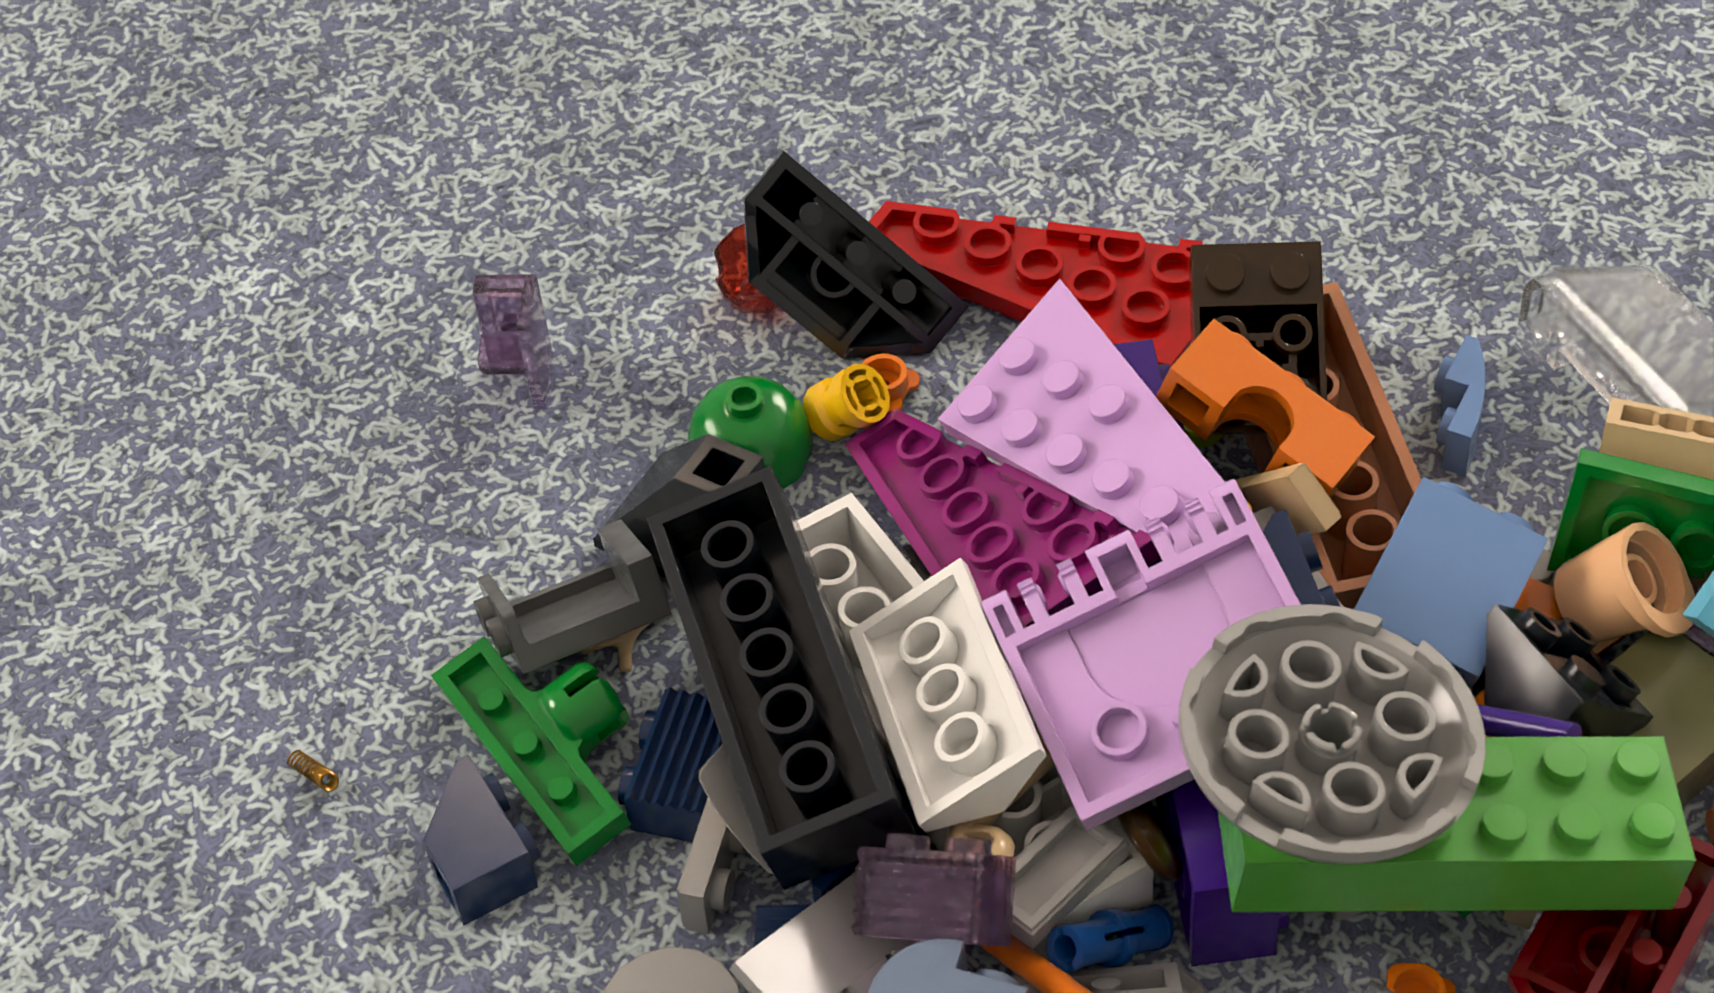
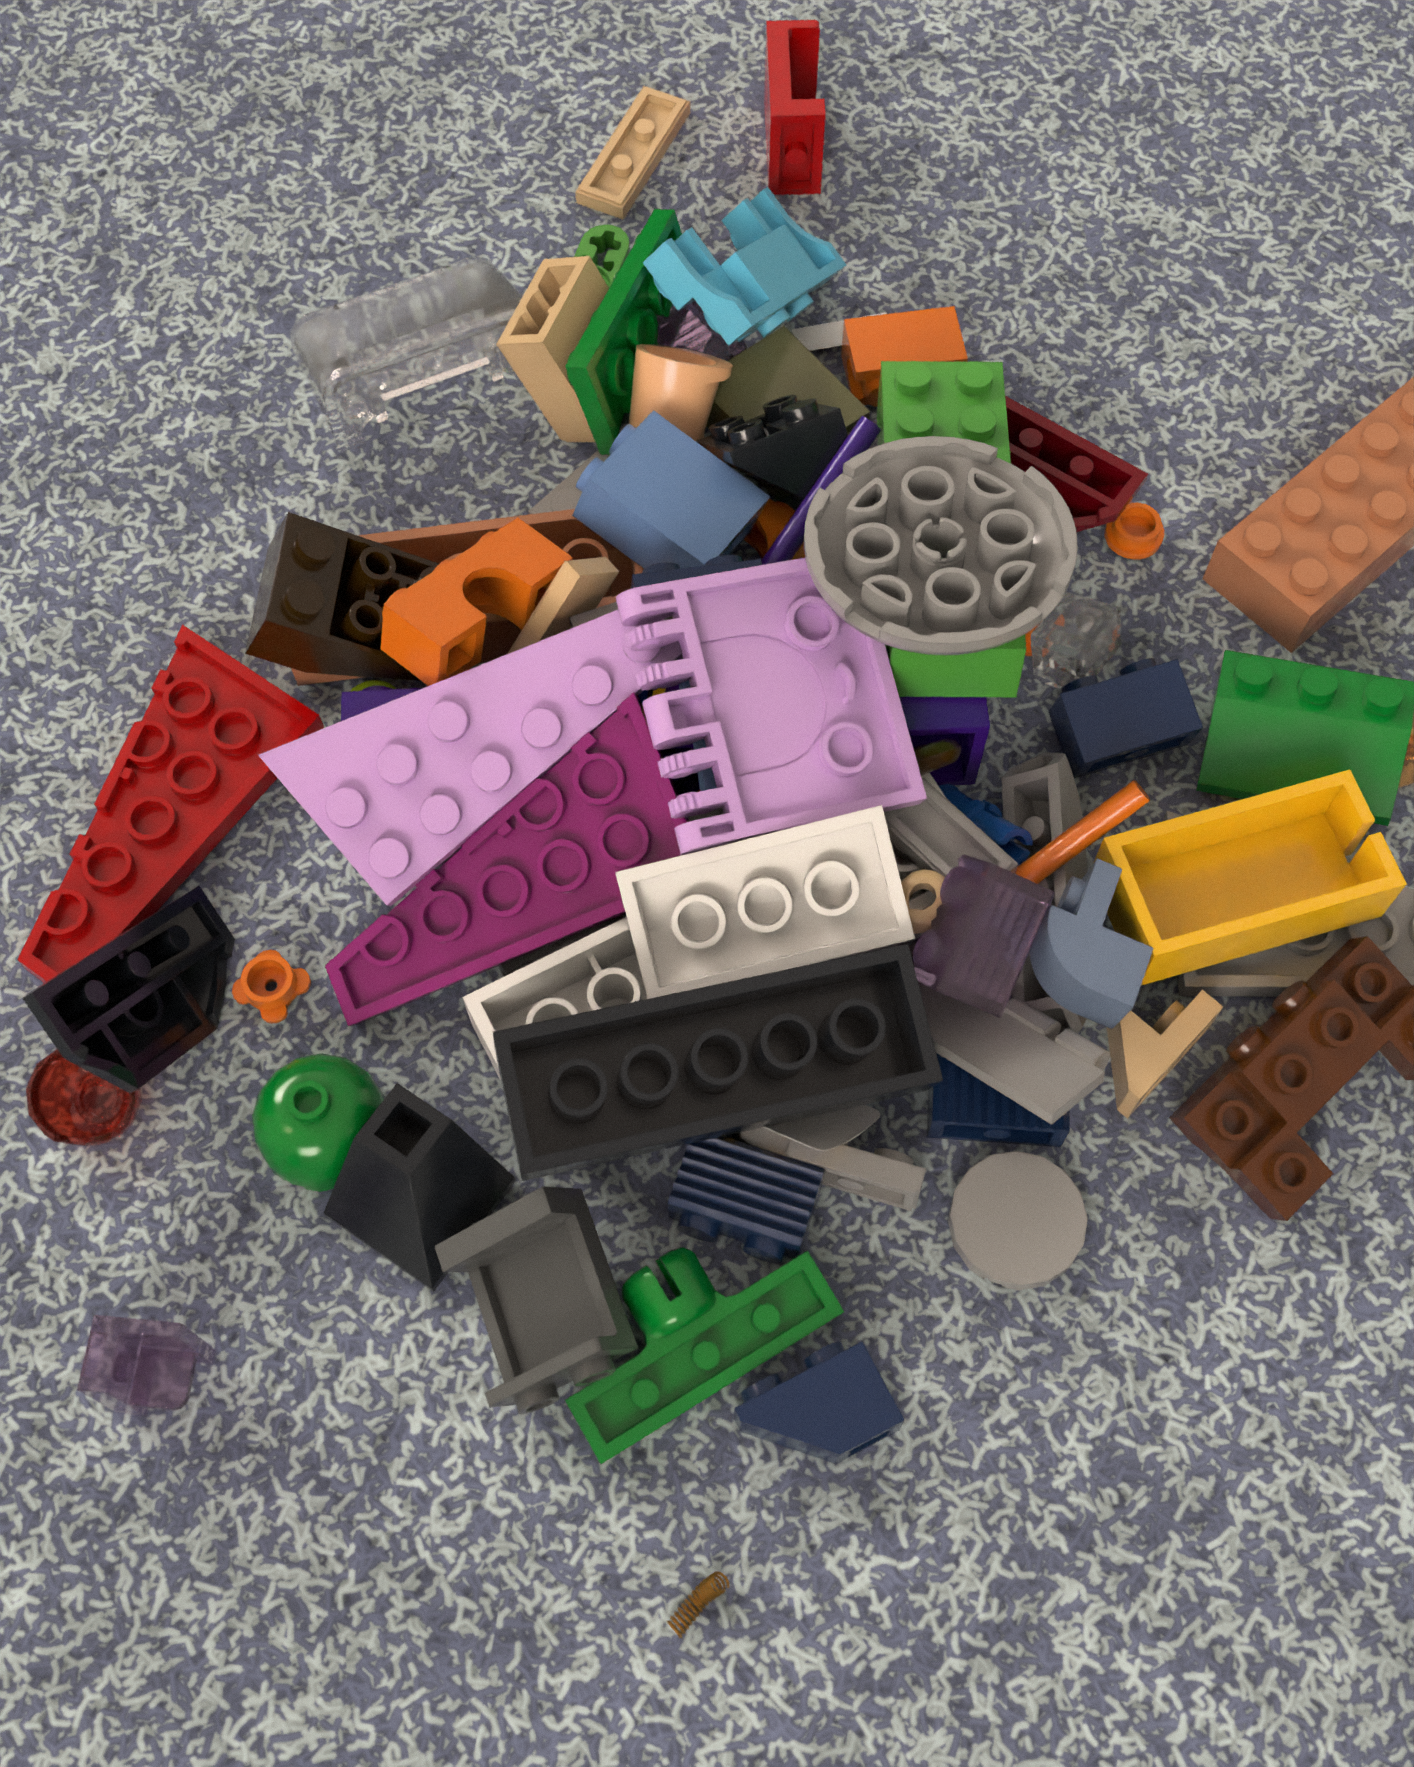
camera: 90 degrees left, 15 degrees up
(846, 402) = (306, 1012): yellow wheel -> none
(1462, 390) = (405, 484): medium blue slope -> none

